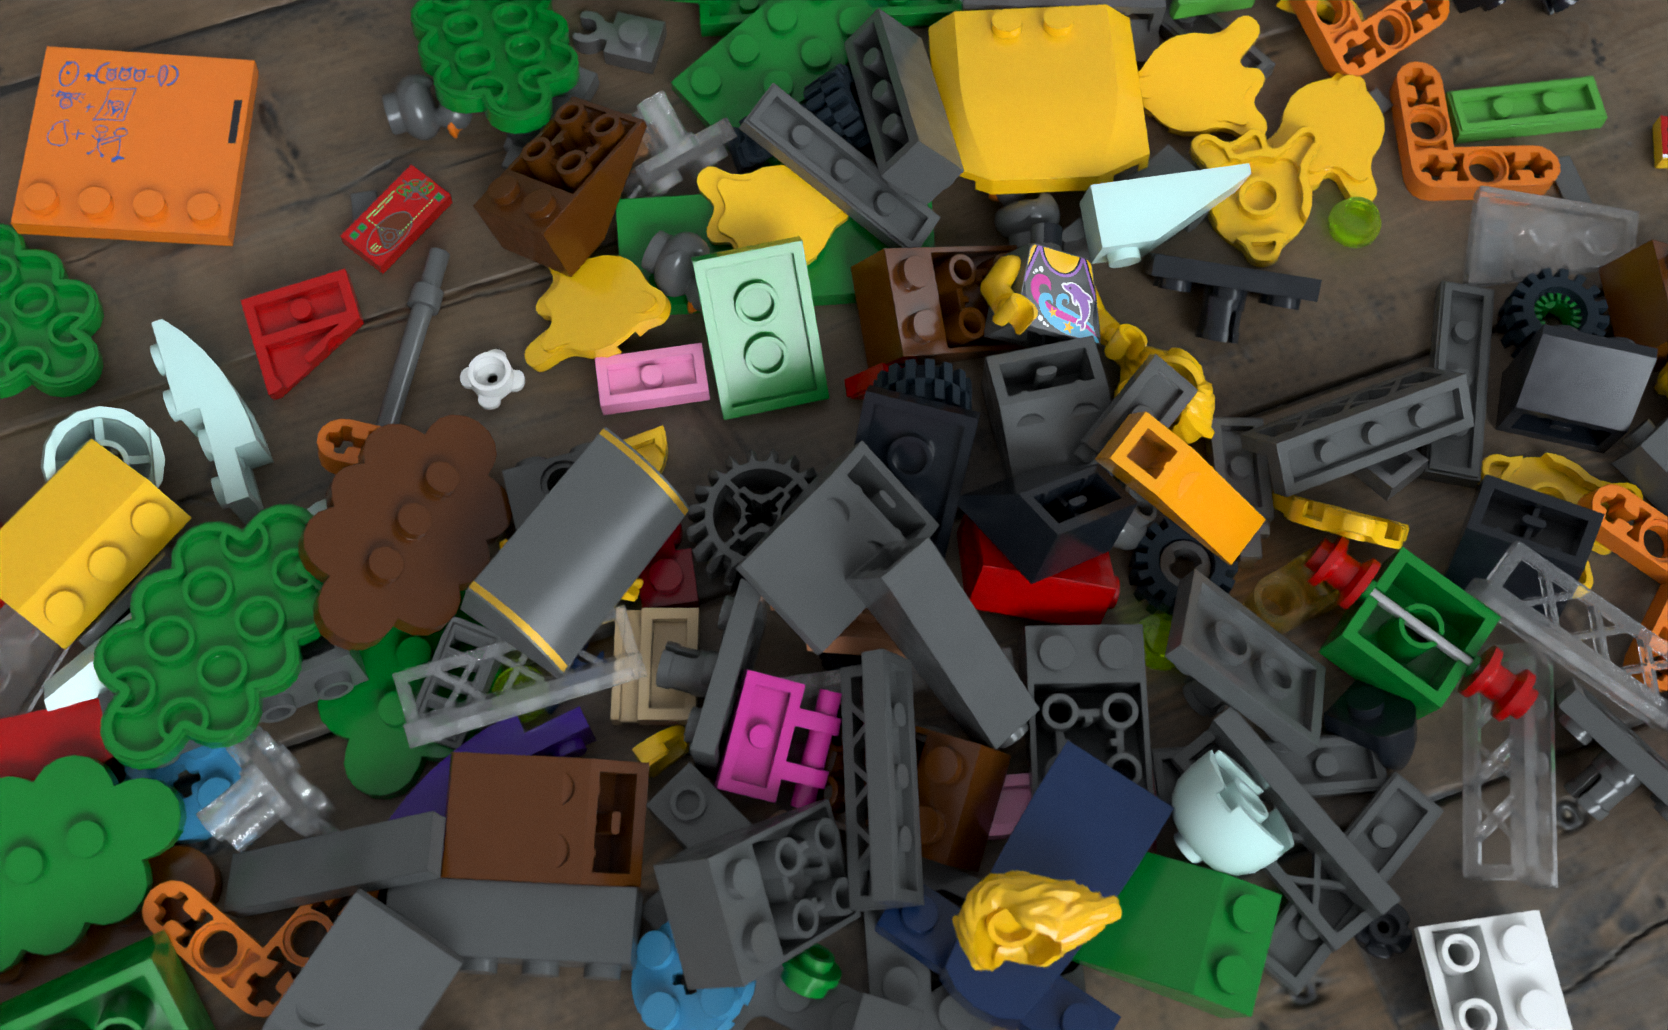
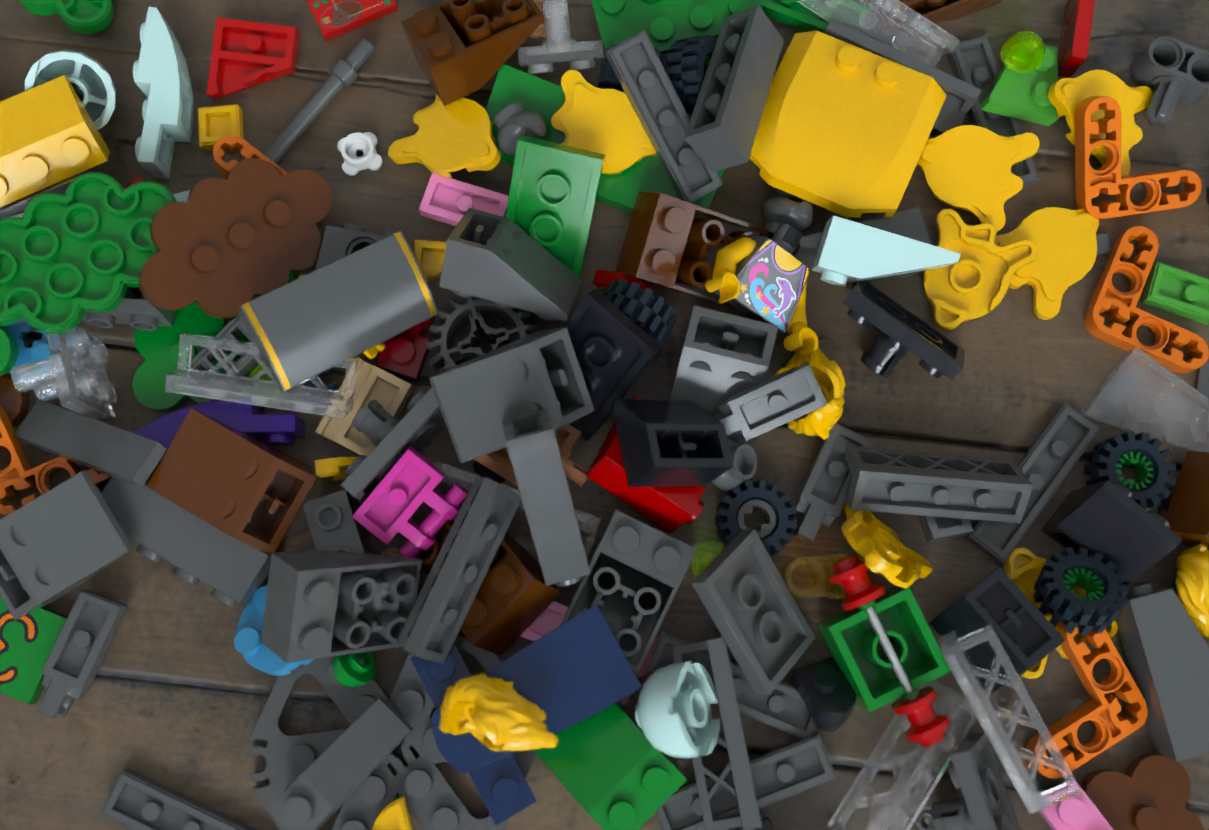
camera: 25 degrees right, 10 degrees up
(299, 425) = (219, 122): none -> yellow tile
(740, 415) = (504, 264): none -> dark grey slope
(1180, 485) = (774, 467): light orange slope -> none
(1354, 222) = (1027, 328): clear neon green plate -> none
(1608, 450) = (1090, 612): none -> black bush

